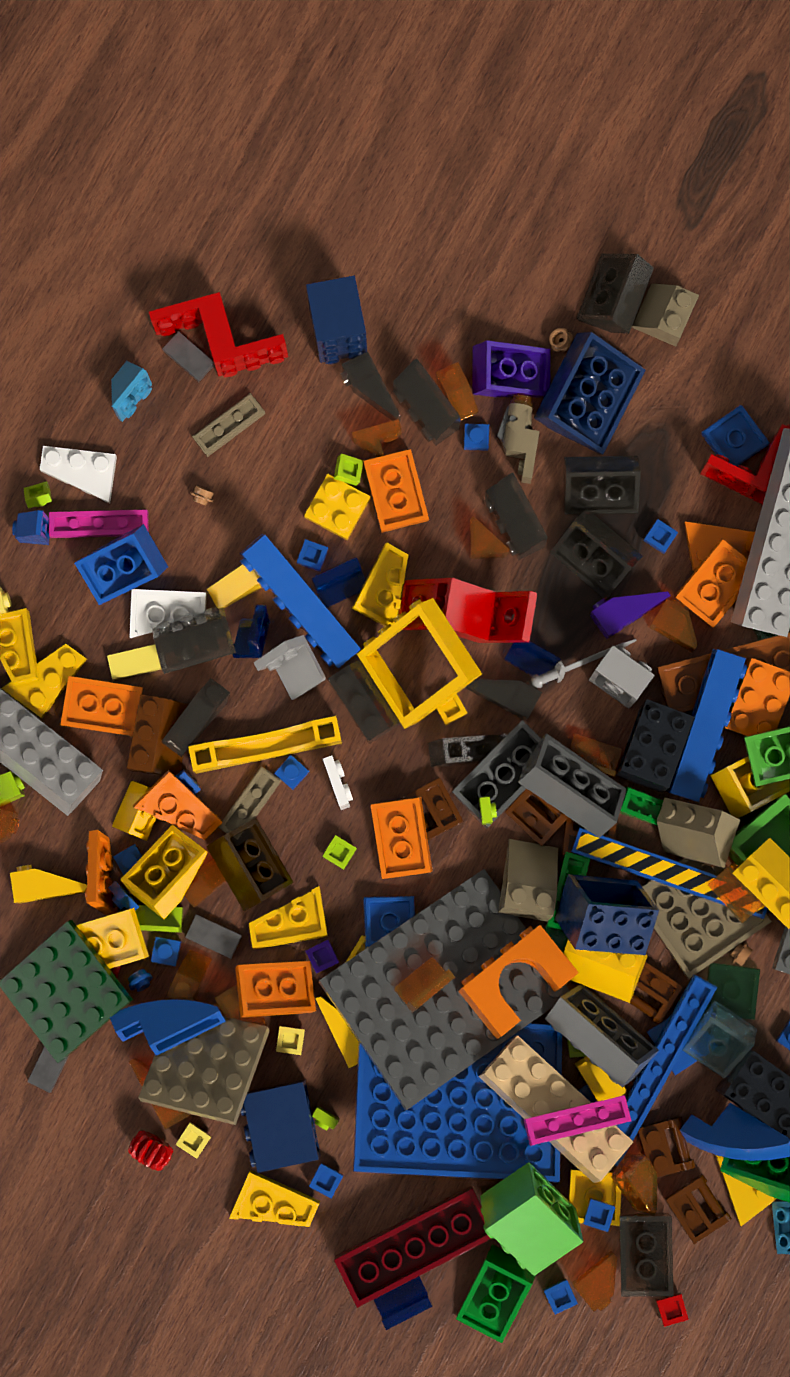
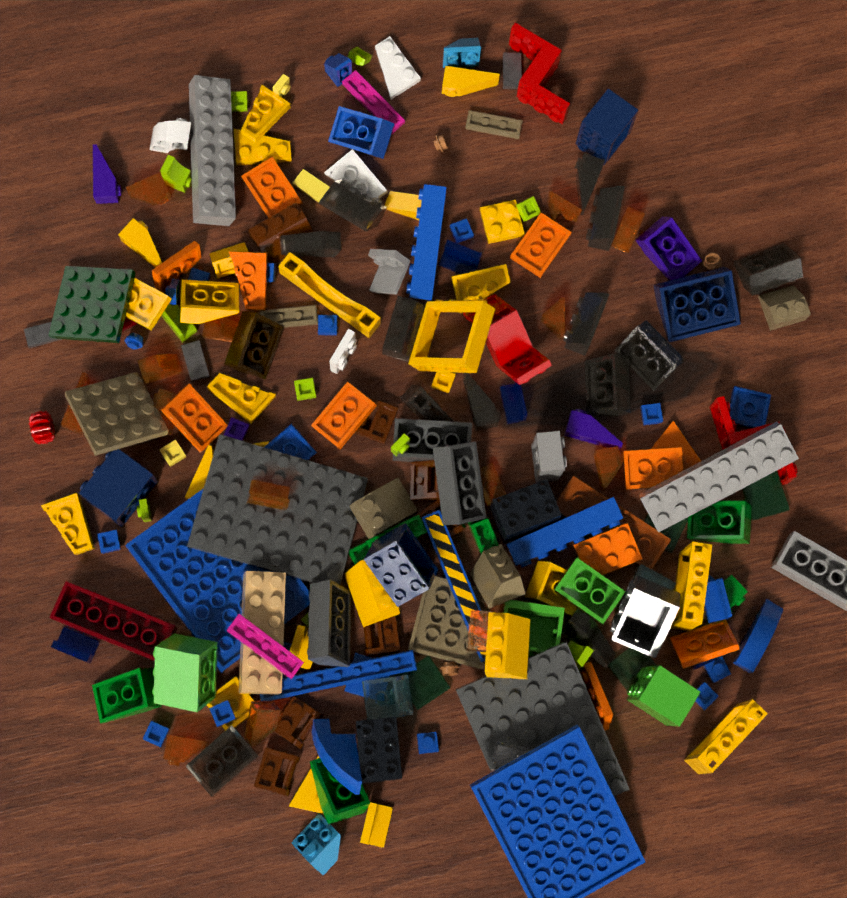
camera: 40 degrees right, 5 degrees down
(157, 416) = (466, 81): none -> yellow slope
(166, 951) = (163, 342): blue plate -> none
(166, 1022) = (121, 372): blue slope -> none
(193, 1140) = (68, 447): light yellow plate -> none
(252, 634) = (386, 234): clear blue panel -> none
(476, 437) = (613, 263): blue plate -> none
(483, 990) = (345, 543): orange arch -> none
(517, 435) = (634, 286): dark tan plate -> none
(559, 670) = (519, 422): light grey sword -> none
(672, 1309) = (204, 806): red plate -> none

